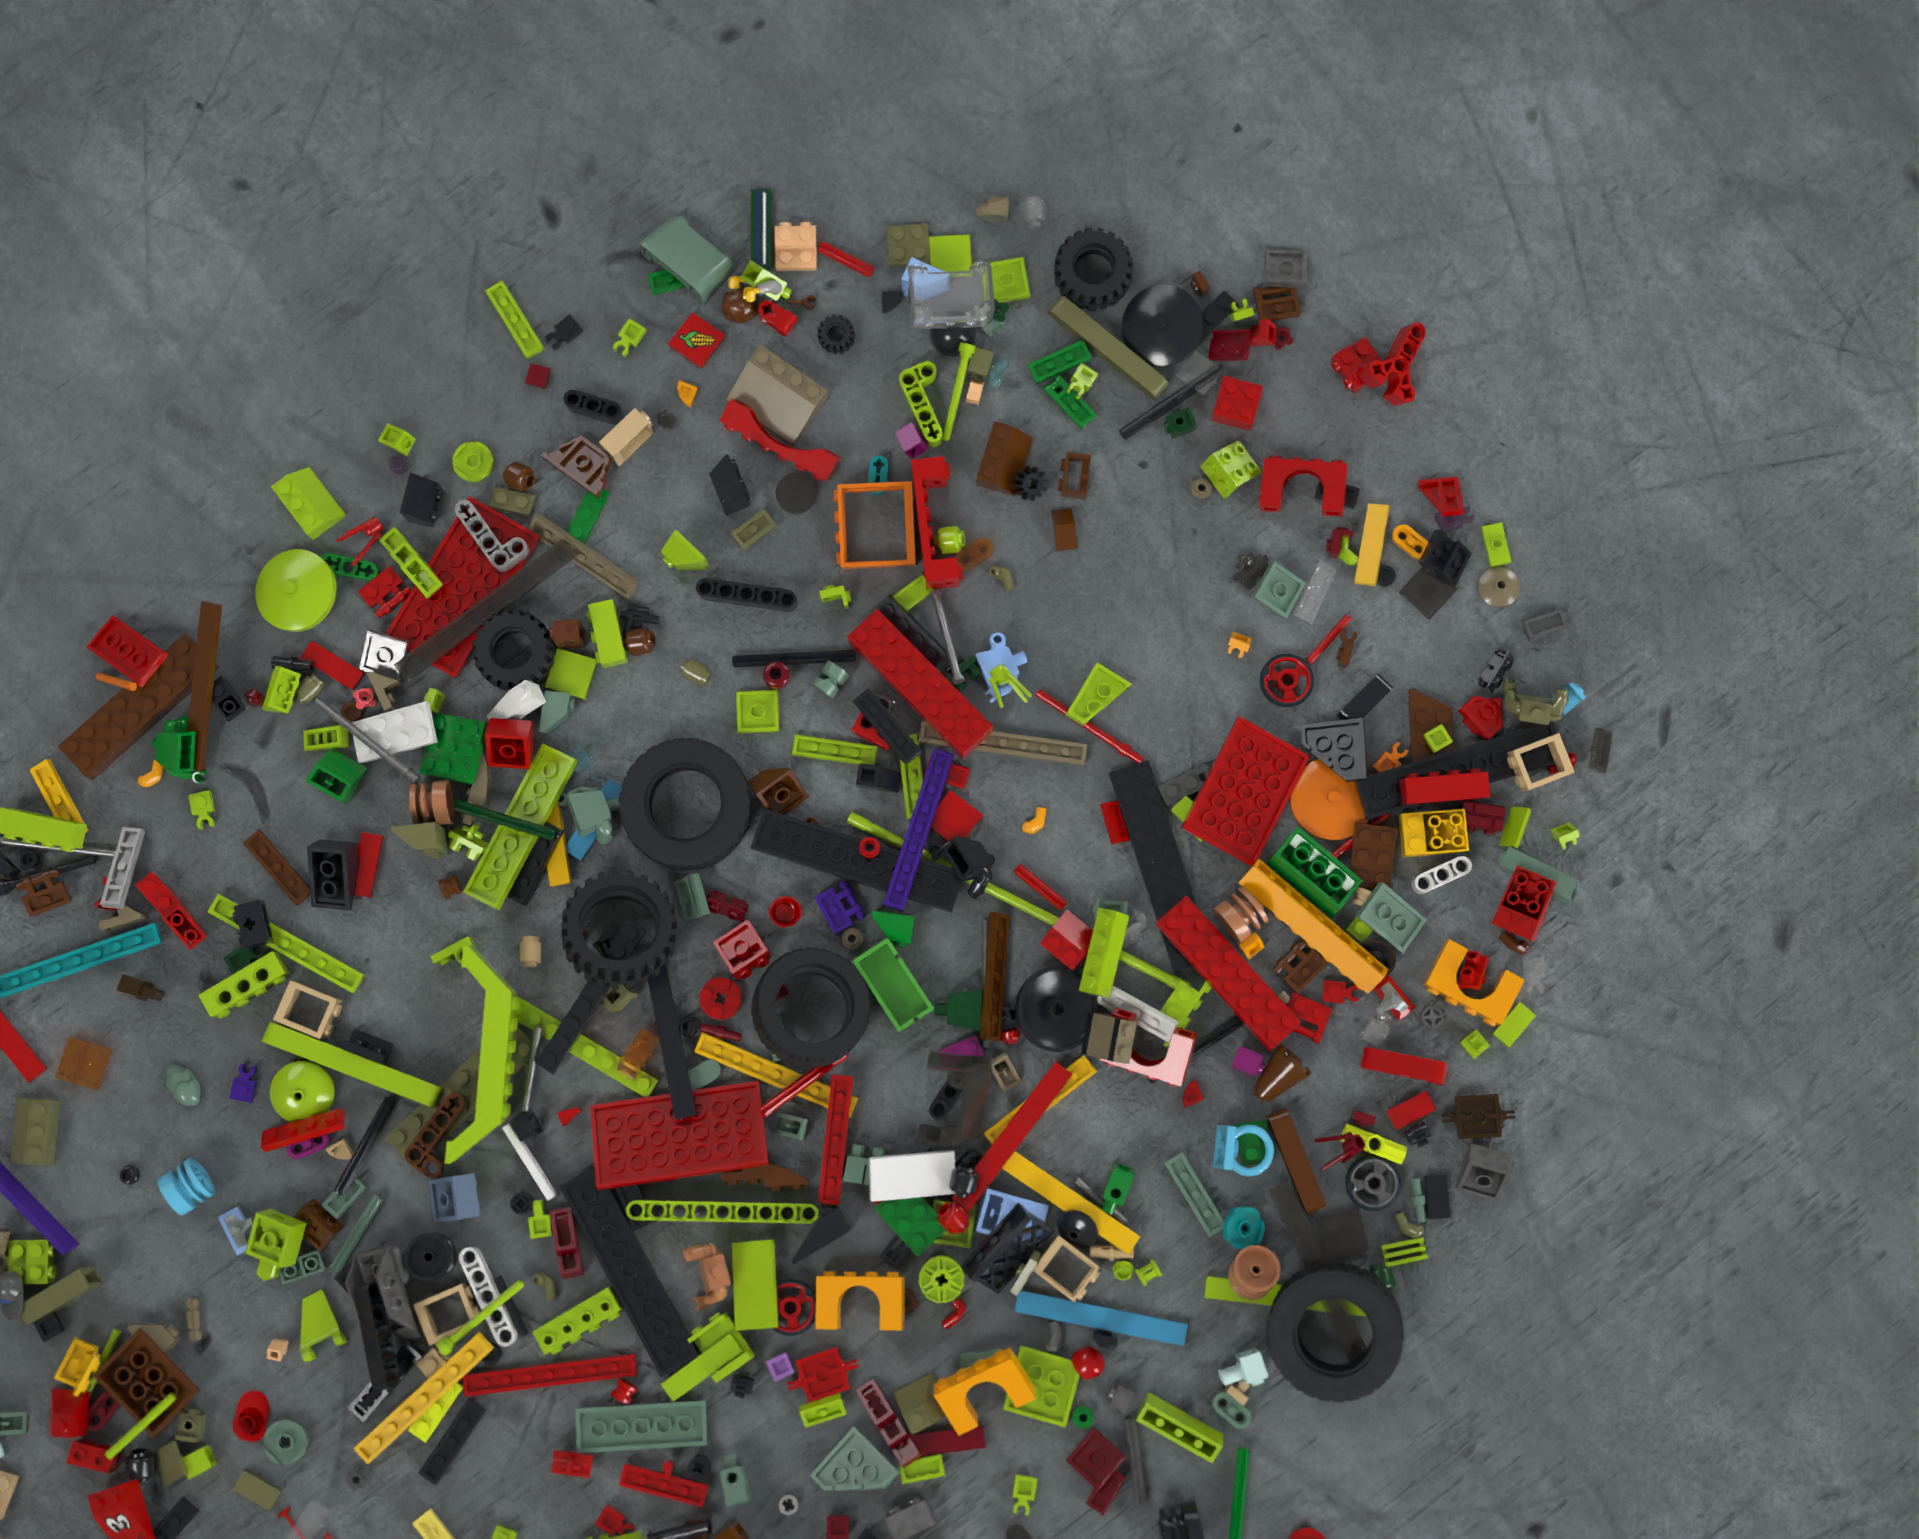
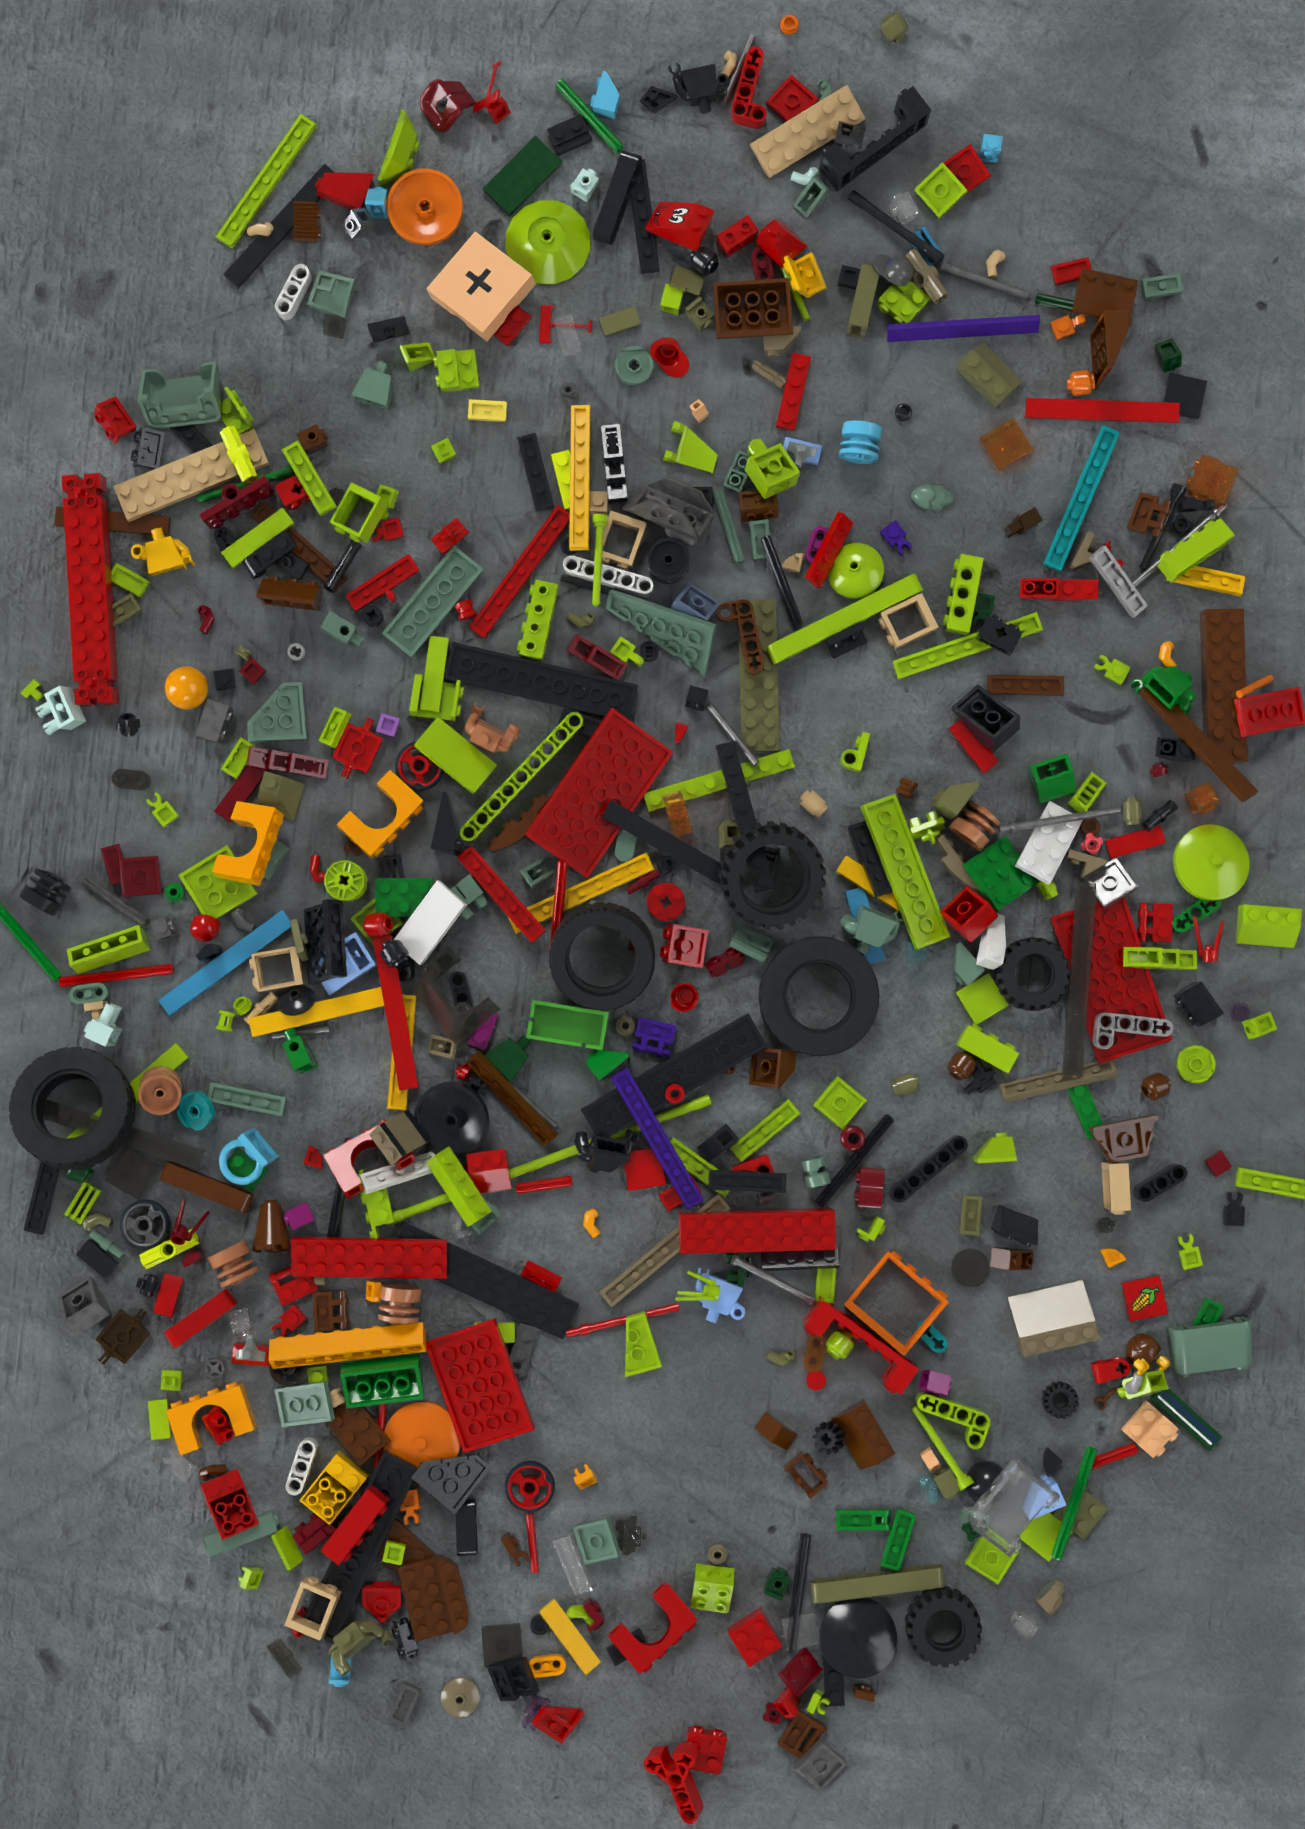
camera: 140 degrees right, 5 degrees up
(142, 1424) = (727, 282): lime bar -> none
(191, 1284) = (793, 391): none -> red plate
(248, 642) = (1202, 799): none -> clear orange brick
(281, 690) = (1147, 791): lime bracket -> none
(377, 1337) = (646, 481): black beam -> none
(487, 1200) = (670, 629): none -> sand green wing
(495, 1054) = (762, 719): lime slope -> none
(504, 820) = (918, 864): dark green axle -> none
(512, 501) = (1142, 1066): olive plate -> none
(531, 1163) = (670, 679): white tile -> none
(568, 634) = (1010, 1021): copper brick -> none
(742, 1384) = (399, 690): black gear -> none
(743, 419) = (1056, 1278): red arch -> none
(759, 467) = (1011, 1258): none -> reddish brown slope
(803, 627) = (870, 1187): none -> dark red brick
(905, 254) = (1074, 1503): none -> green axle
(995, 533) = (816, 1380): none -> red tile
(1082, 380) = (870, 1543): lime plate -> none
(1196, 1401) = (117, 975): none -> red axle
(1335, 1079) = (233, 1264): none -> nougat wheel
(1433, 1289) = (41, 1199): none -> black tile
(1441, 676) = (434, 1596): none -> reddish brown plate
(1495, 544) = (490, 1723): lime plate -> none

